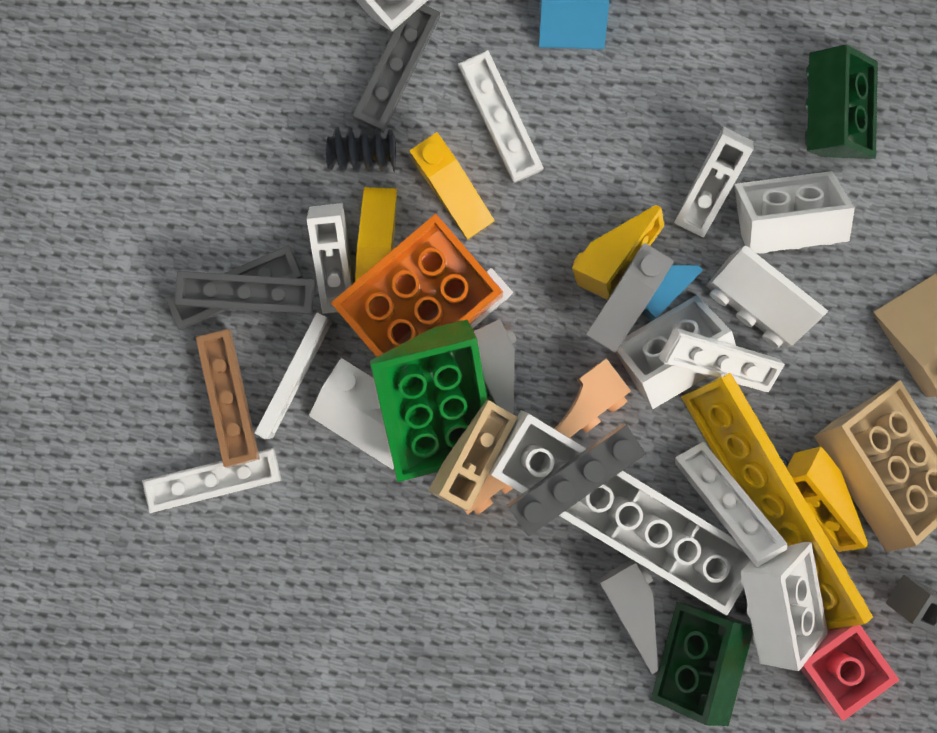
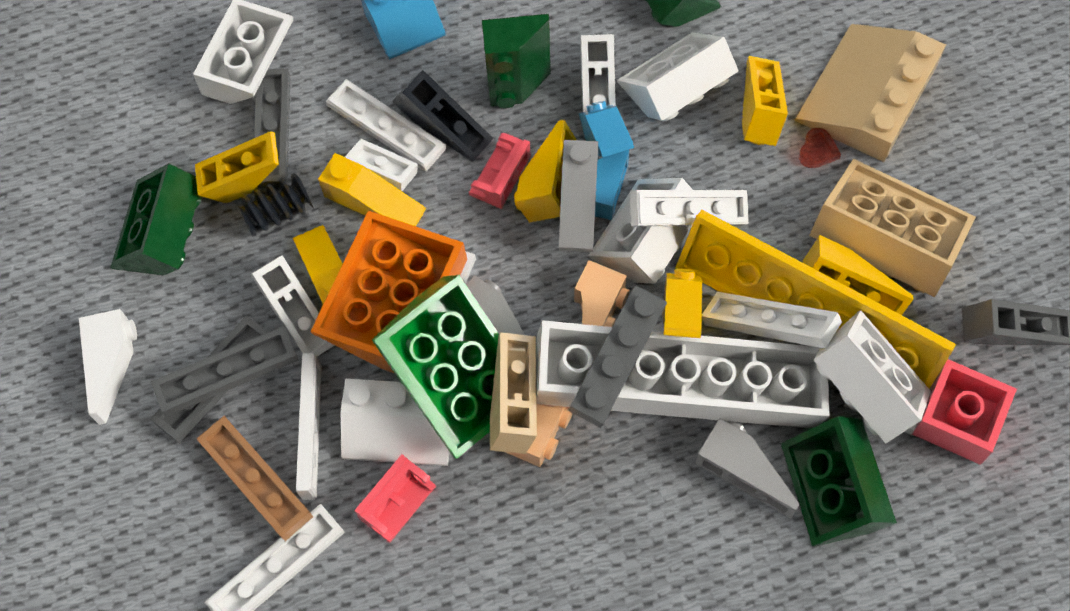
camera: 30 degrees left, 20 degrees down
(153, 217) = (106, 356): none -> white slope
(253, 110) = (158, 222): none -> dark green slope
(334, 479) = (395, 498): none -> coral hinge
(341, 103) = (237, 169): none -> yellow slope
(475, 159) = (384, 163): none -> white plate
(554, 139) = (442, 116): none -> black slope
(579, 221) = (502, 170): none -> coral hinge
(648, 124) = (516, 57): none -> dark green slope
(663, 447) = (684, 304): none -> yellow slope
(691, 240) = (607, 127): none -> dark azure slope
(765, 298) = (695, 144): white slope -> none
(855, 281) = (763, 102): none -> yellow slope
(875, 353) = (818, 149): none -> clear red tile

